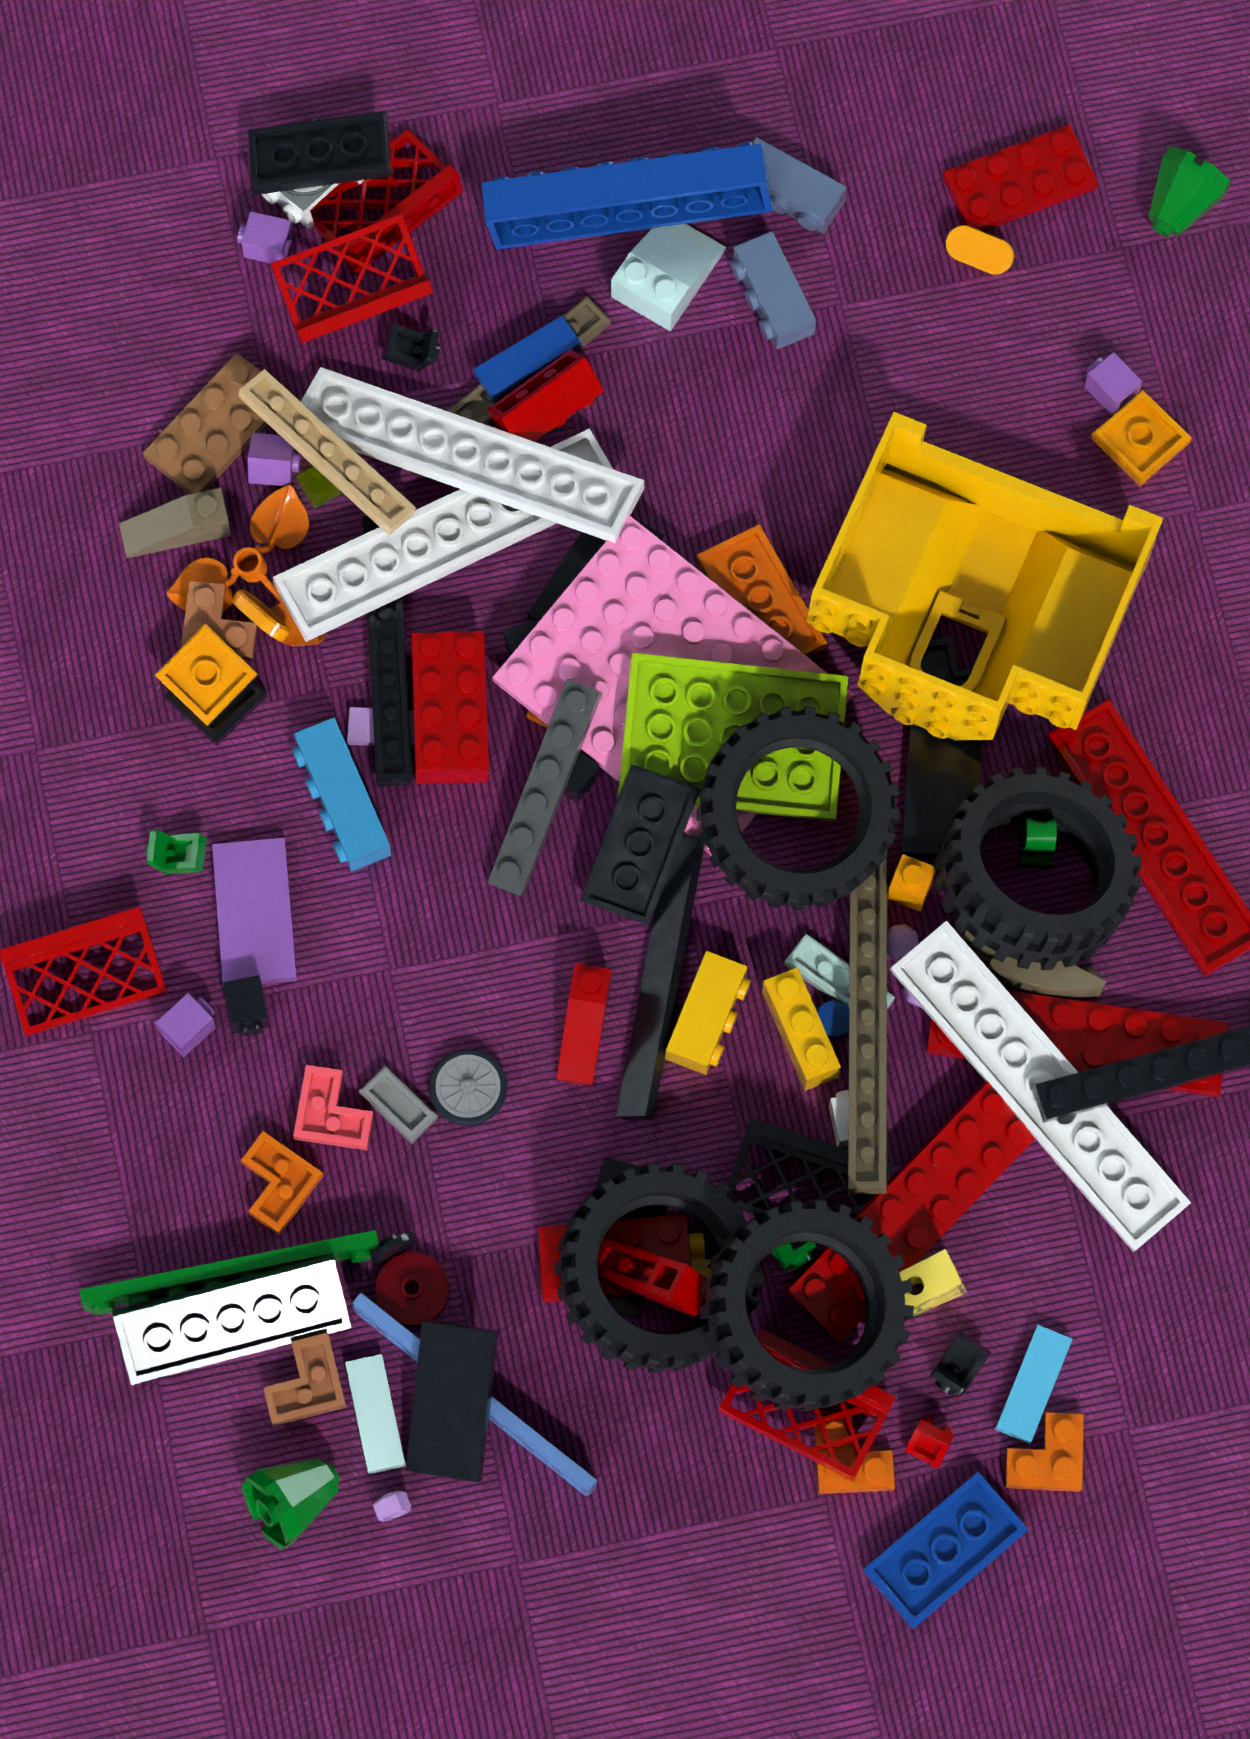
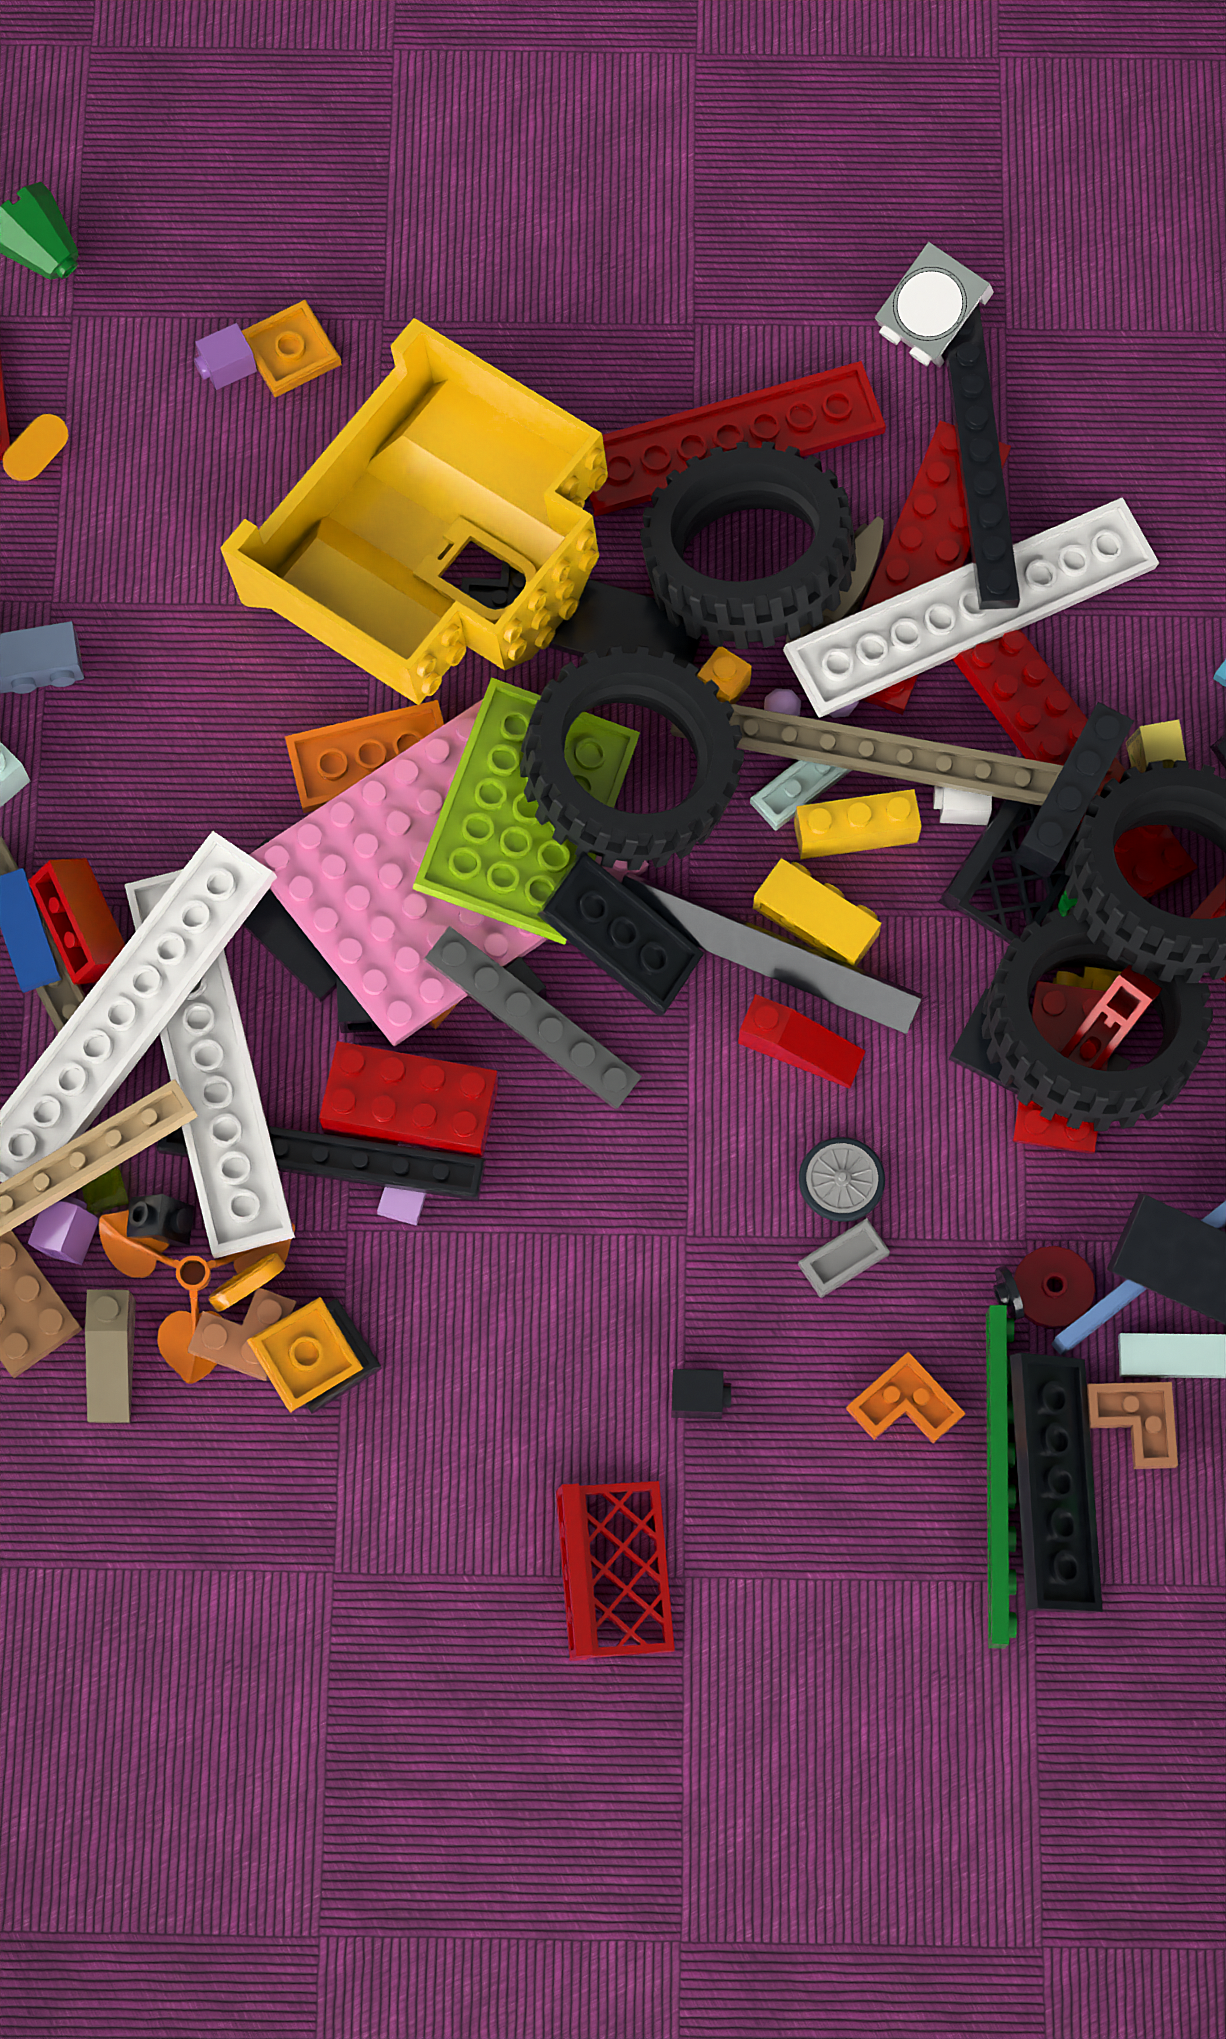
camera: 75 degrees left, 0 degrees up
(176, 852) = (502, 1434): green bracket -> none
(187, 1024) = (705, 1464): medium lavender brick -> none
(254, 910) = (589, 1366): medium lavender tile -> none
(298, 533) = (160, 1219): none -> black bracket
(322, 1119) = (841, 1342): coral plate -> none
(341, 794) = (479, 1240): dark azure brick -> none
(835, 1019) = (848, 786): blue tile -> none
(909, 1206) = (1073, 790): none -> black arch
(1037, 844) = (709, 547): green leg -> none

